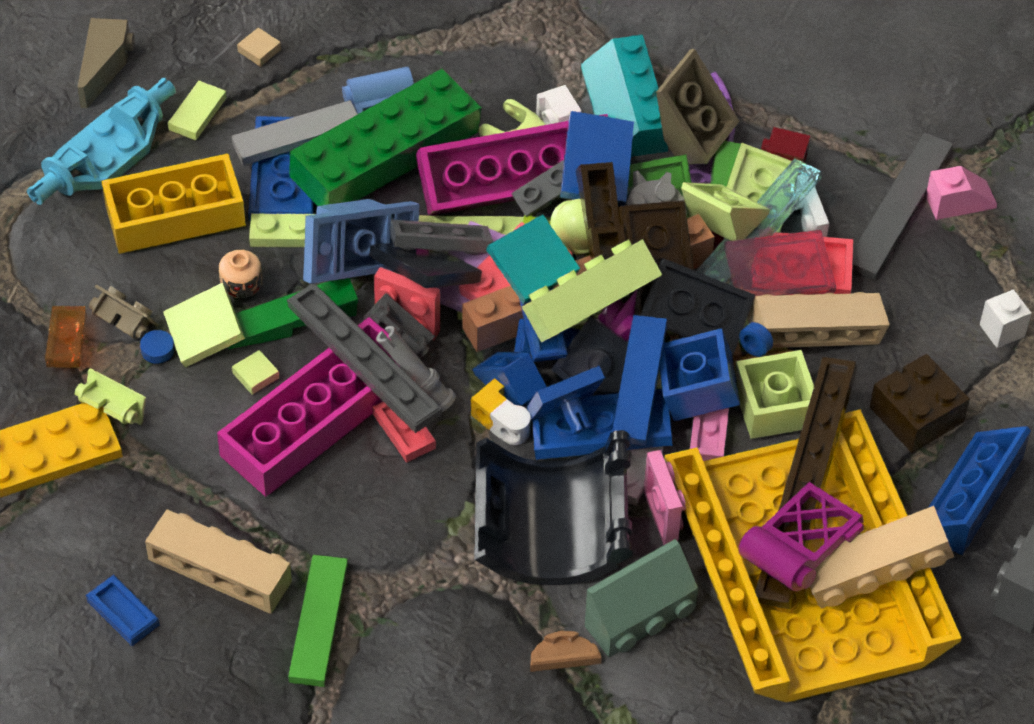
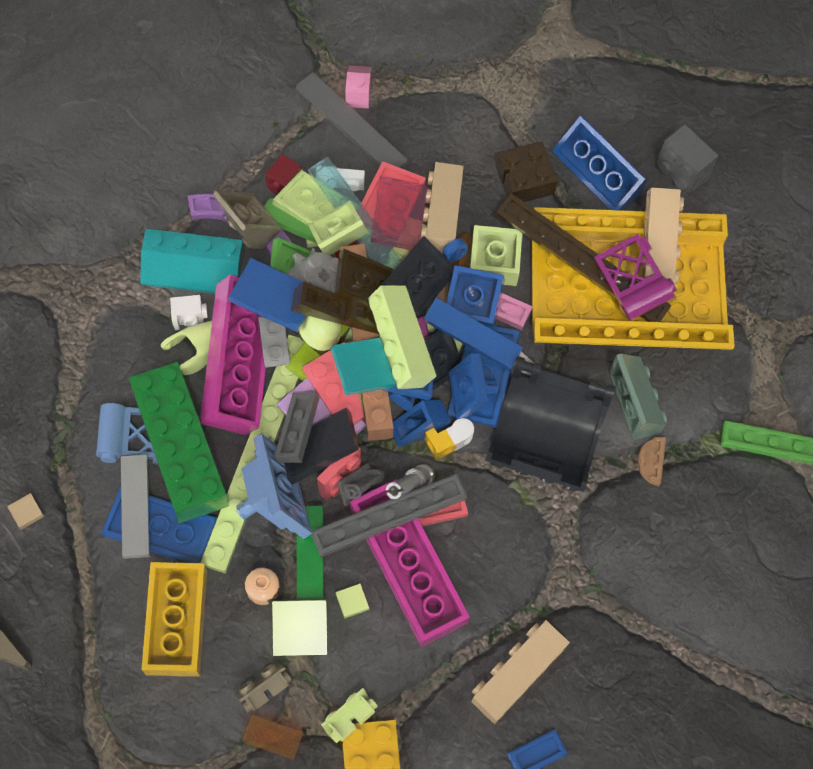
camera: 75 degrees left, 15 degrees up
(106, 145) = (86, 661): medium azure plate -> none
(157, 346) = (303, 668): blue tile -> none
(197, 110) = (74, 577): yellowish green tile -> none
(318, 621) = (584, 615): bright green tile -> none
(662, 496) = (564, 354): bright pink plate -> none
(1005, 318) = (474, 97): white brick -> none

